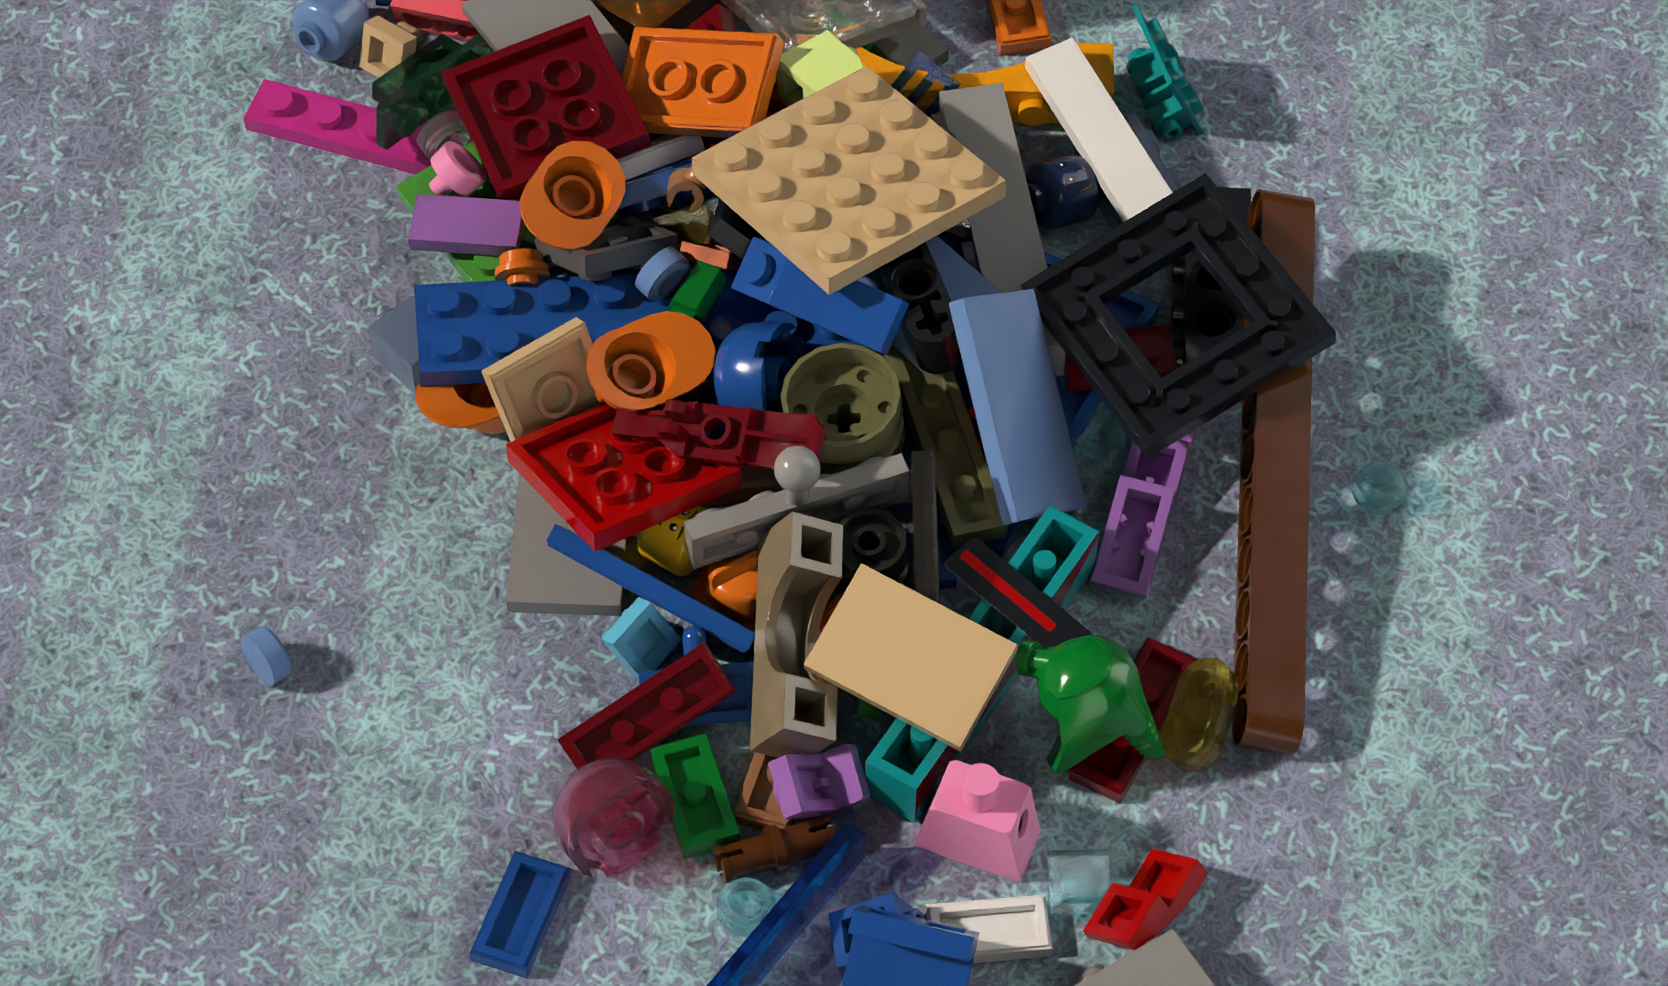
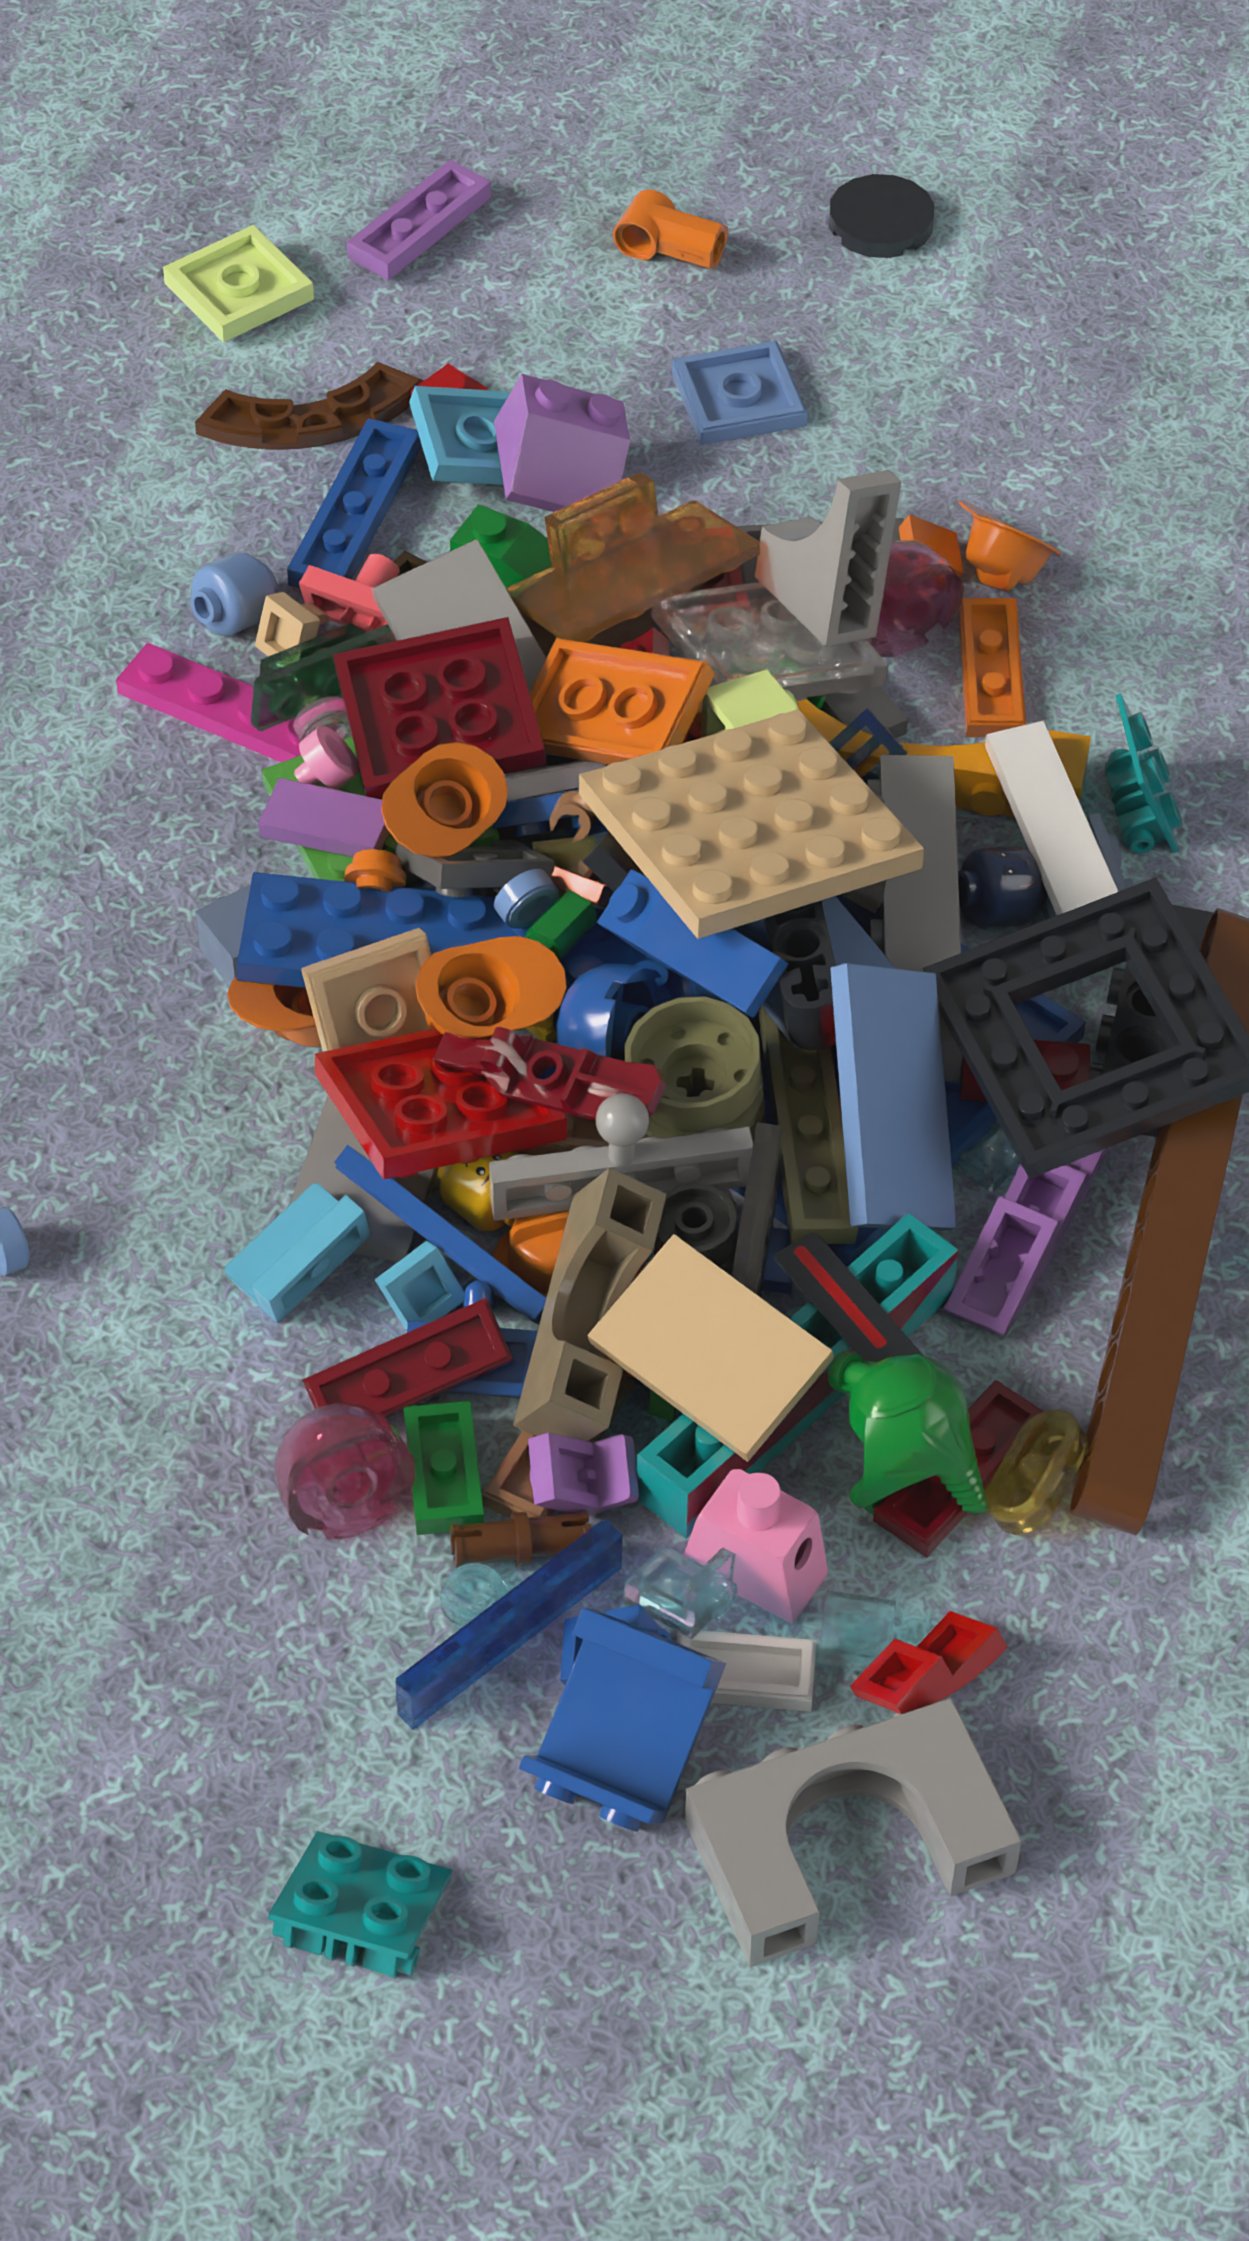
camera: 10 degrees right, 5 degrees down
(520, 914) = (220, 1564): blue tile -> none
(525, 621) = (298, 1250): none -> medium azure panel
(924, 871) = (682, 1590): none -> clear light blue bracket

